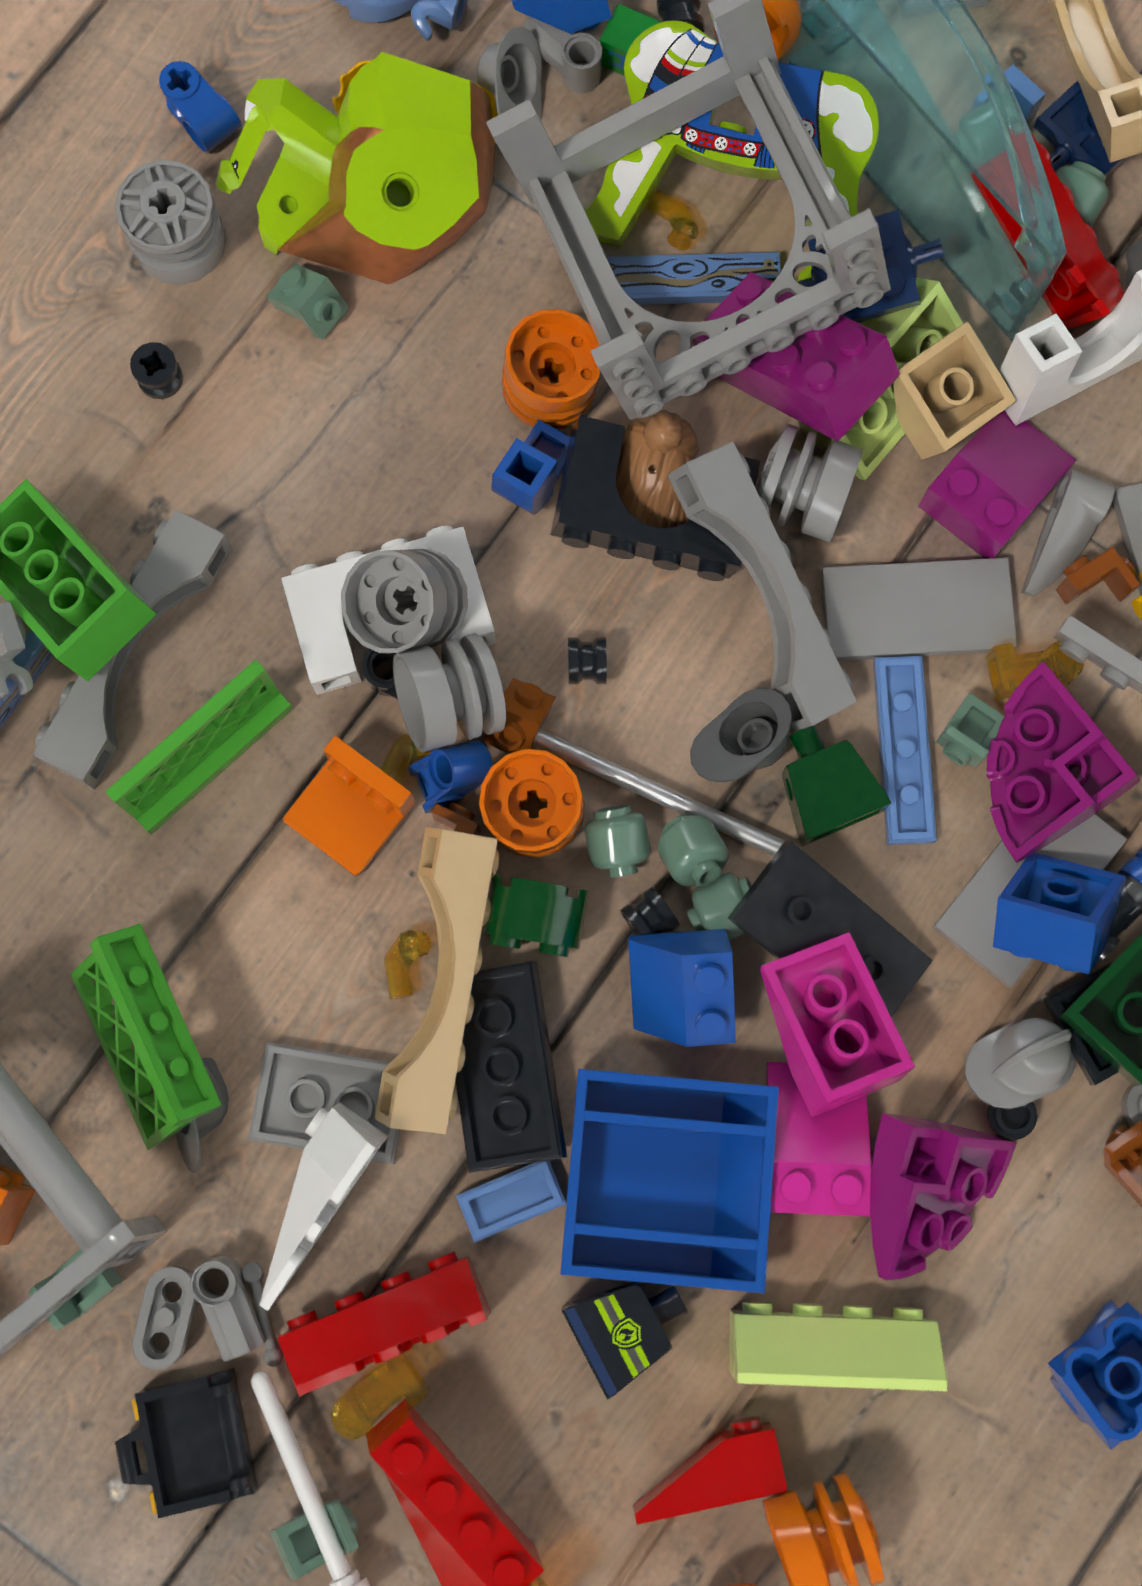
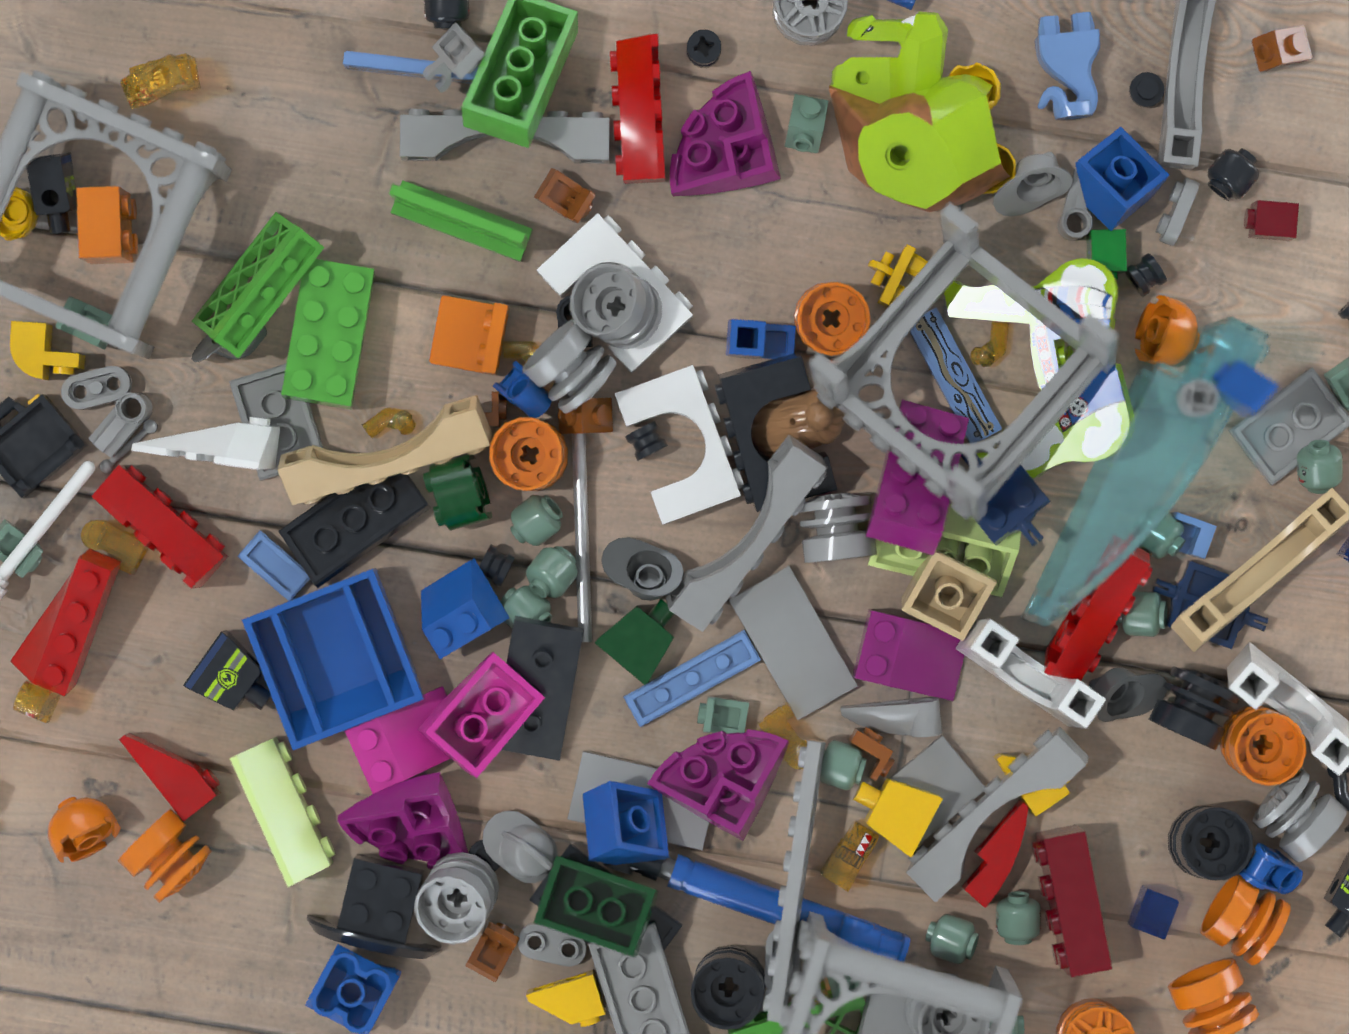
camera: 70 degrees right, 10 degrees up
(75, 1378) = (32, 351): none -> yellow brick
(184, 473) = (640, 110): none -> red wedge
(242, 612) = (565, 196): none -> dark orange bracket
(255, 979) = (328, 334): none -> bright green brick
(281, 399) = (725, 143): none -> magenta brick
(530, 265) = (907, 263): none -> yellow hips
(557, 587) = (683, 395): none -> white arch
(1021, 1288) = (378, 909): none -> black piece
(1057, 1174) = (456, 898): none -> light grey wheel
(1104, 611) = (842, 765): none -> sand green head

